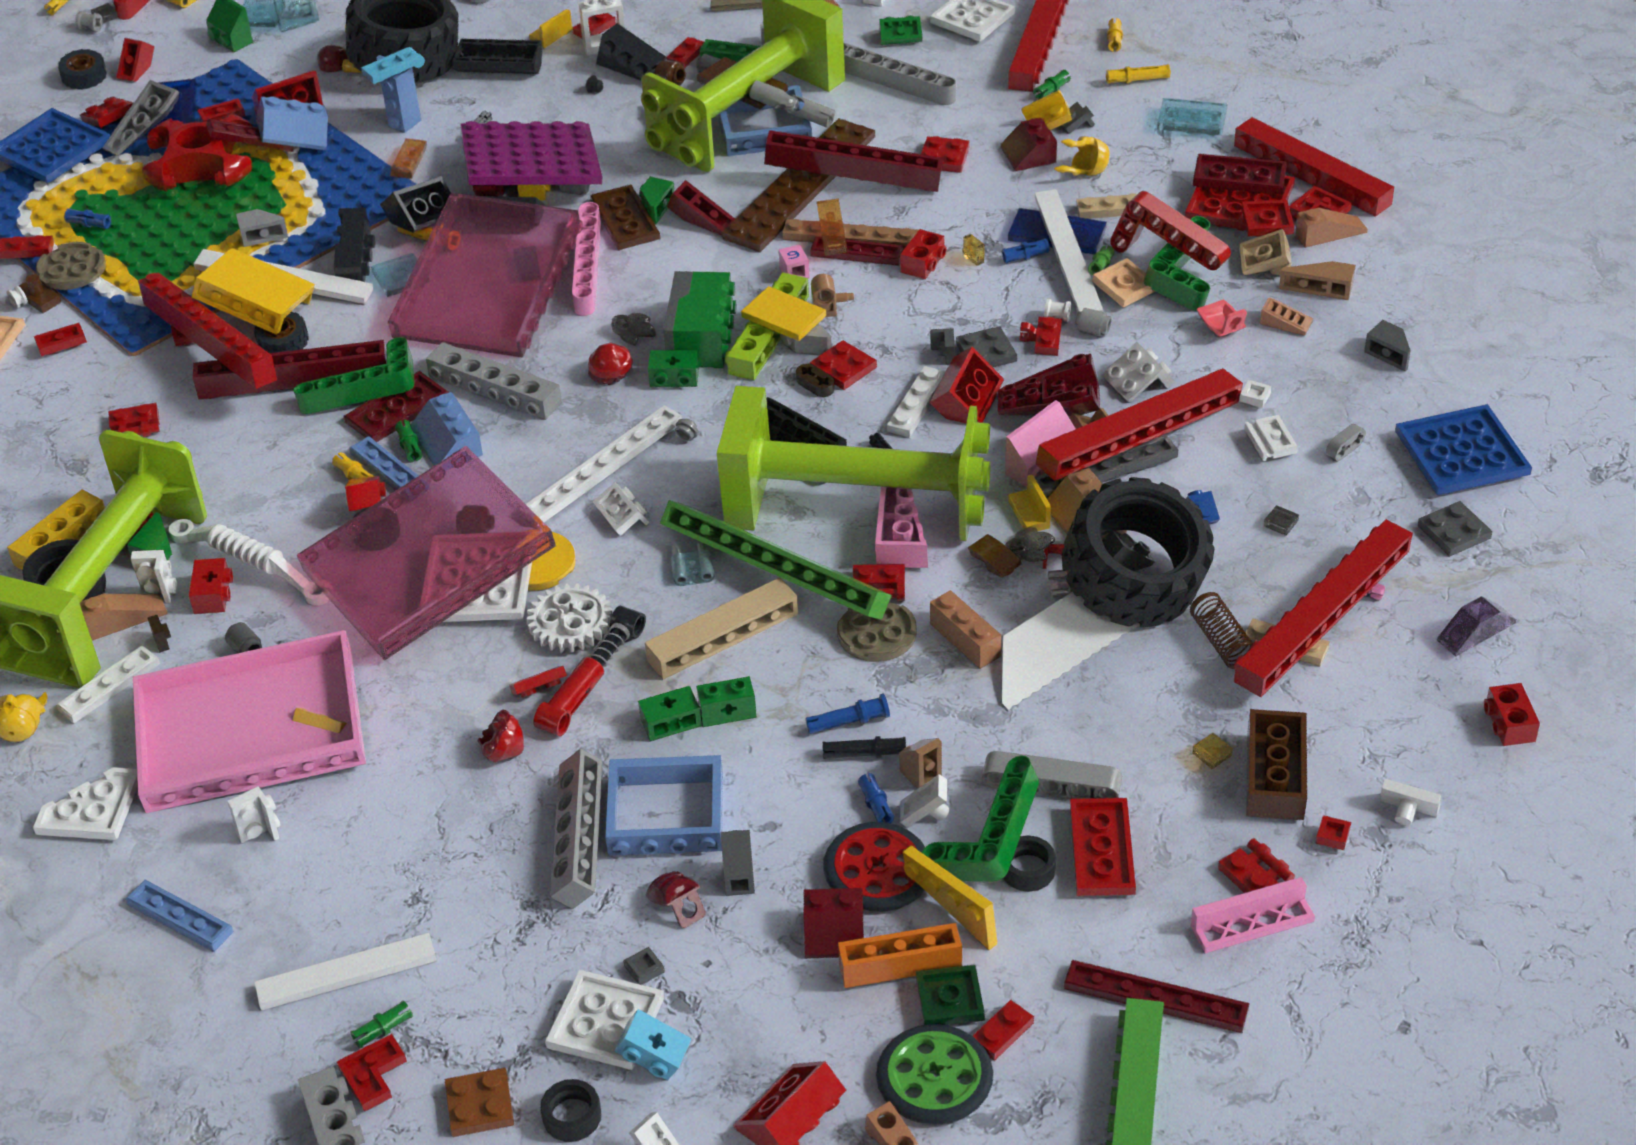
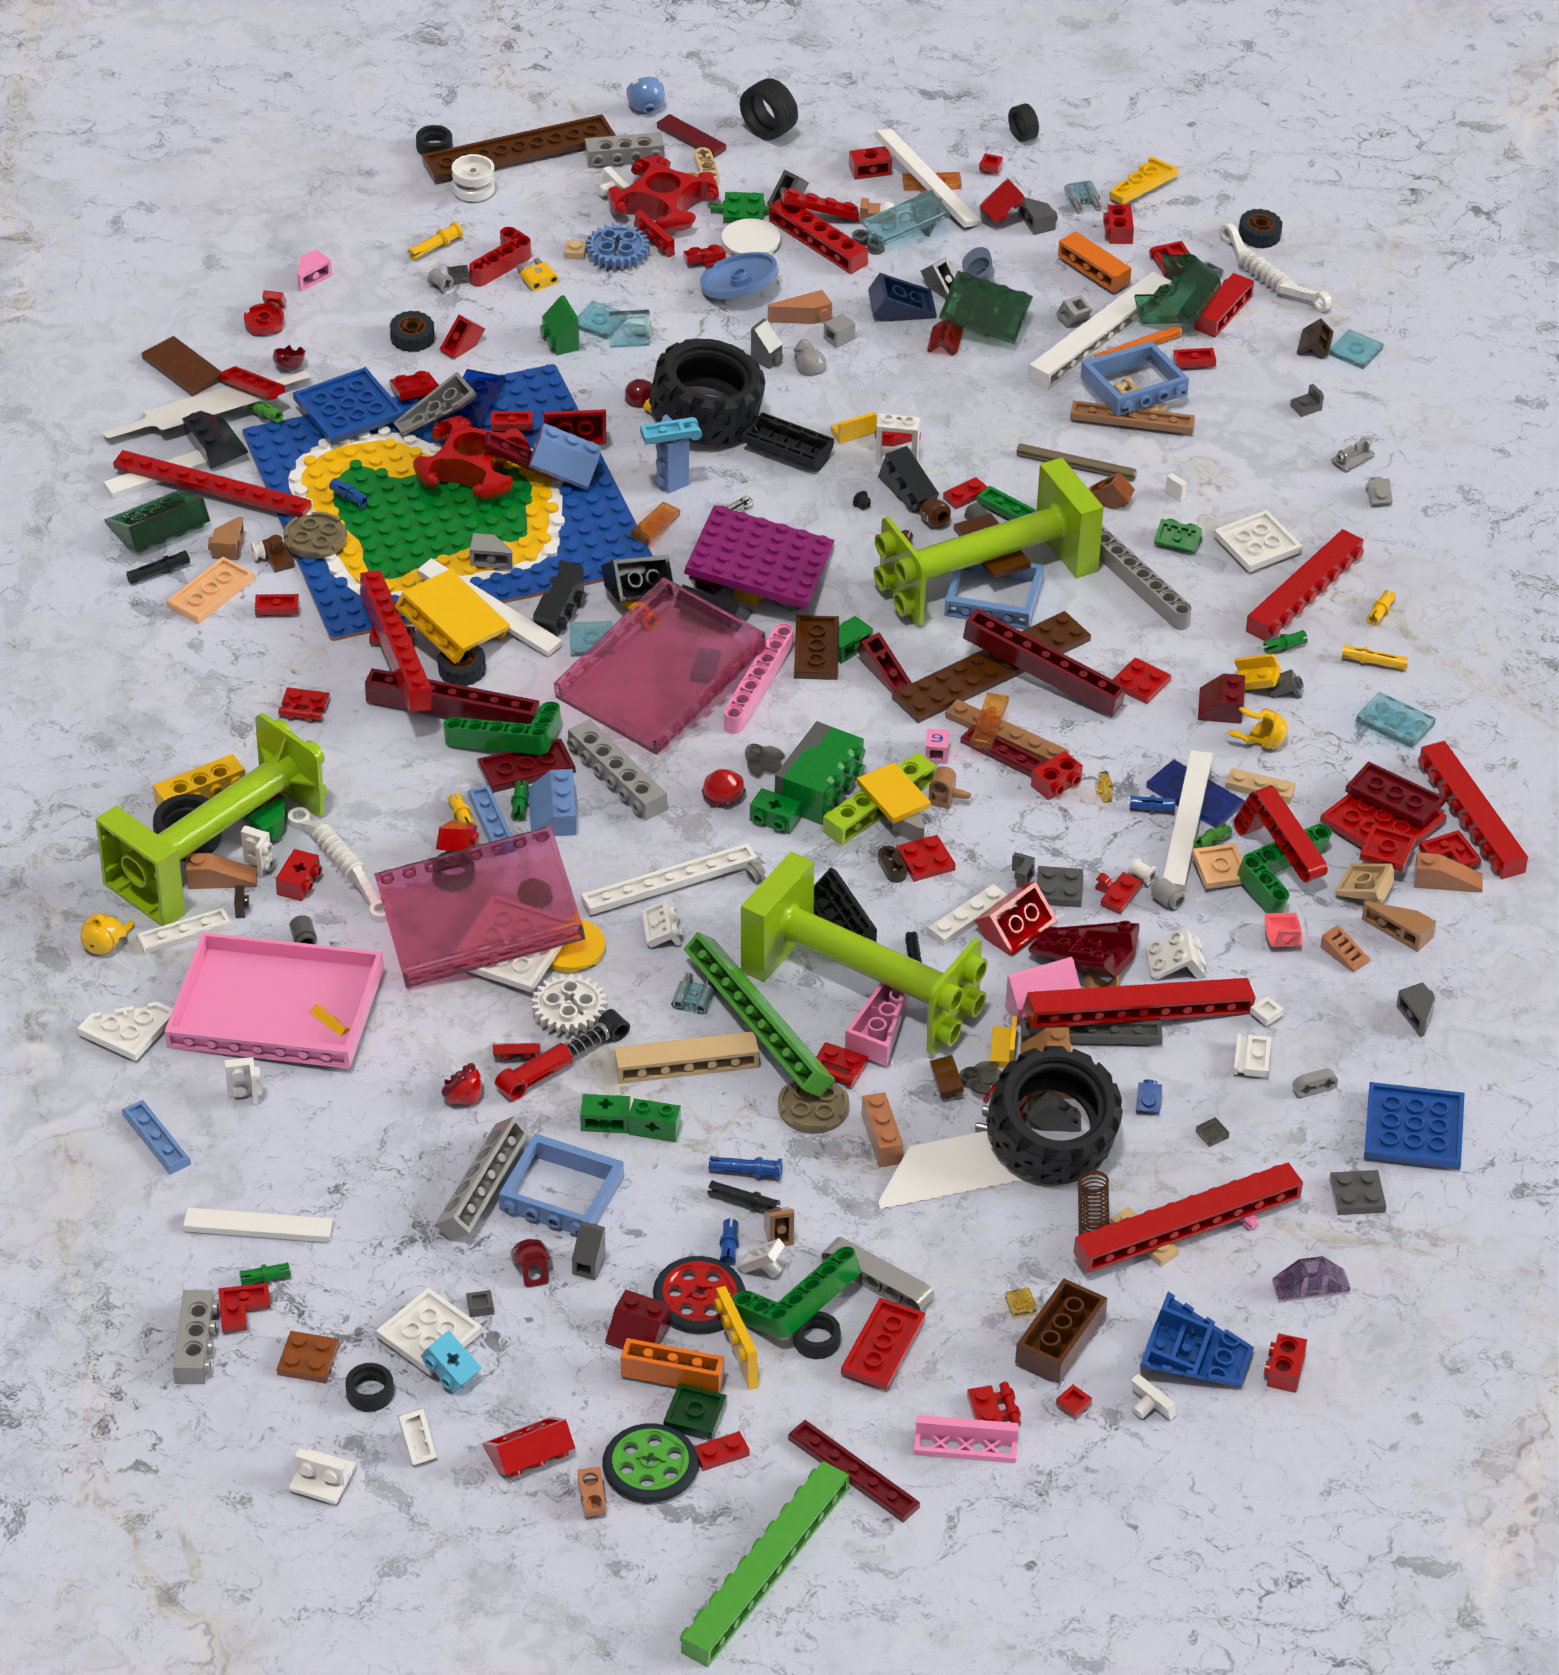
camera: 20 degrees right, 0 degrees up
(779, 99) = (1010, 575): light grey piece -> none
(1412, 734) = (1195, 1347): none -> blue wedge

